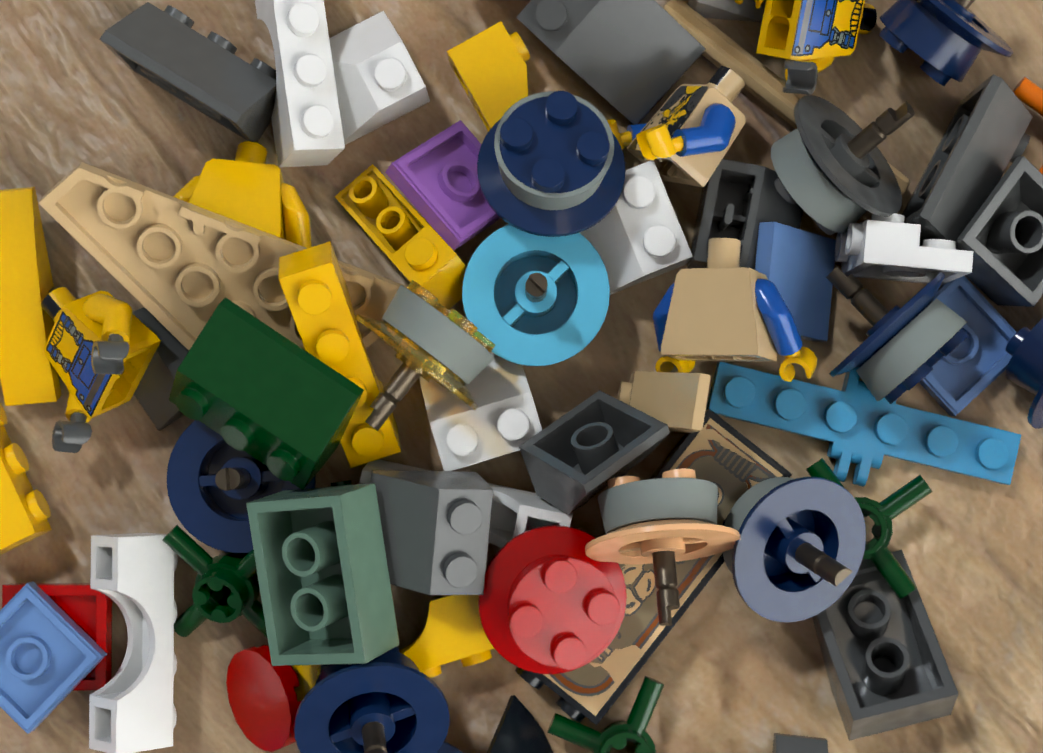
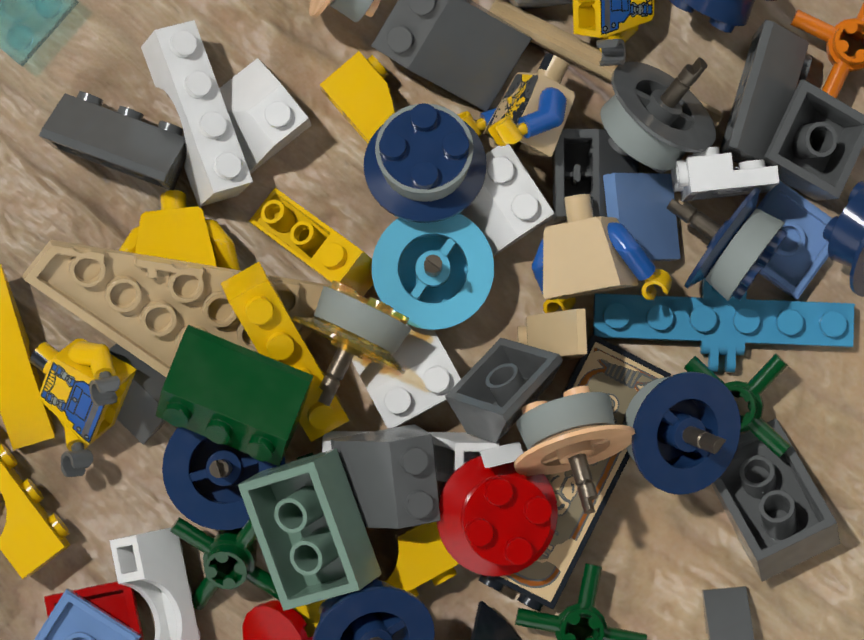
camera: 15 degrees left, 0 degrees up
(444, 184) = (339, 193): medium lavender tile -> none
(572, 530) = (501, 454): none -> white sticker

